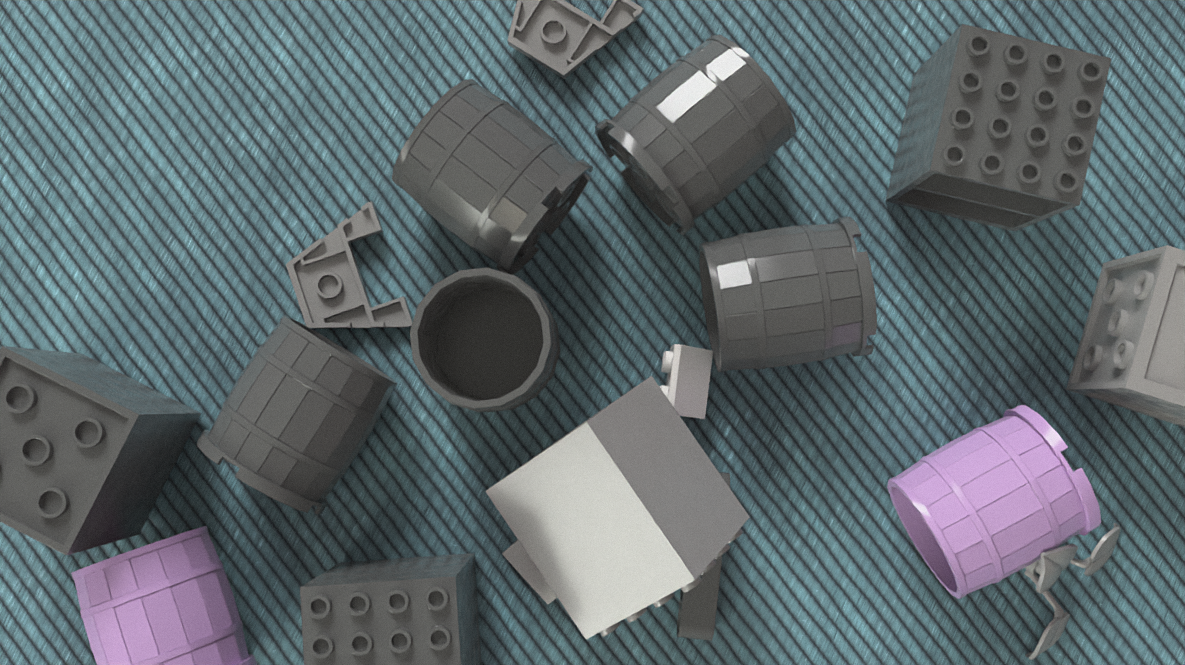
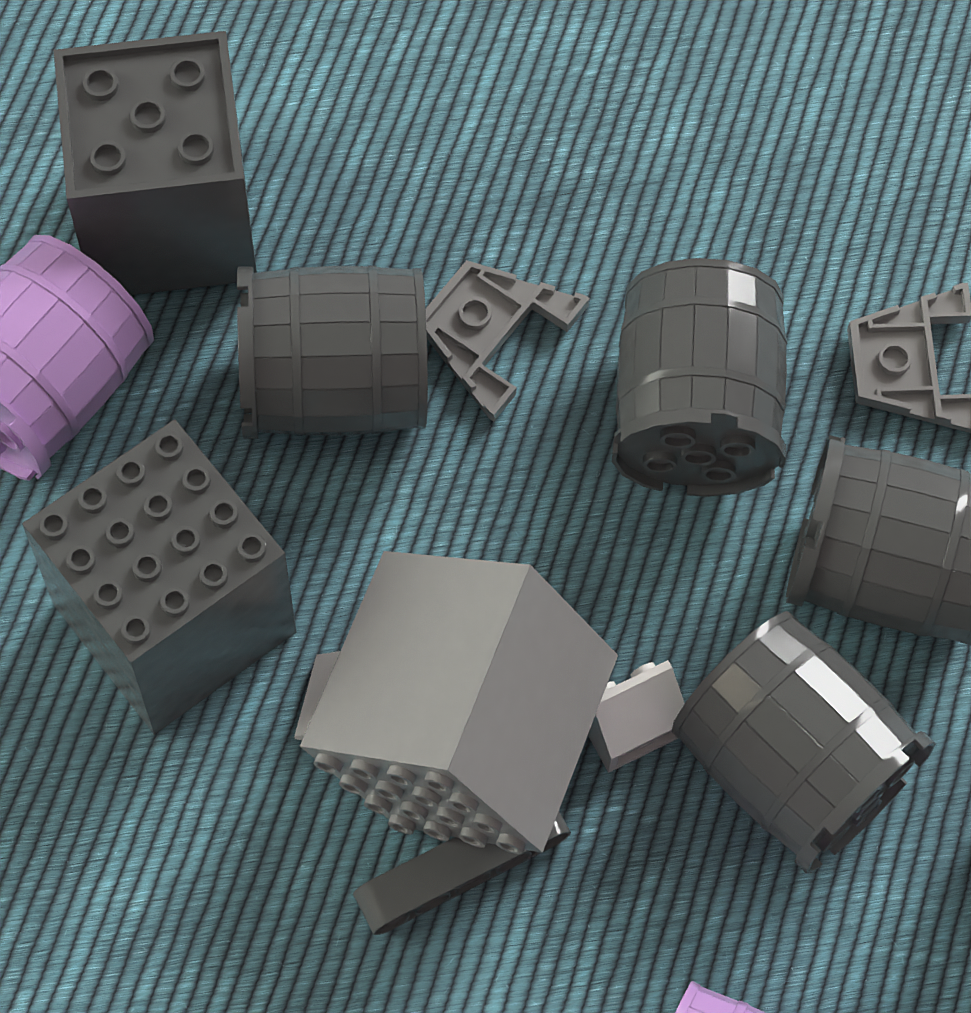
camera: 50 degrees right, 20 degrees down
(485, 340) = (534, 470): dark grey piece -> none

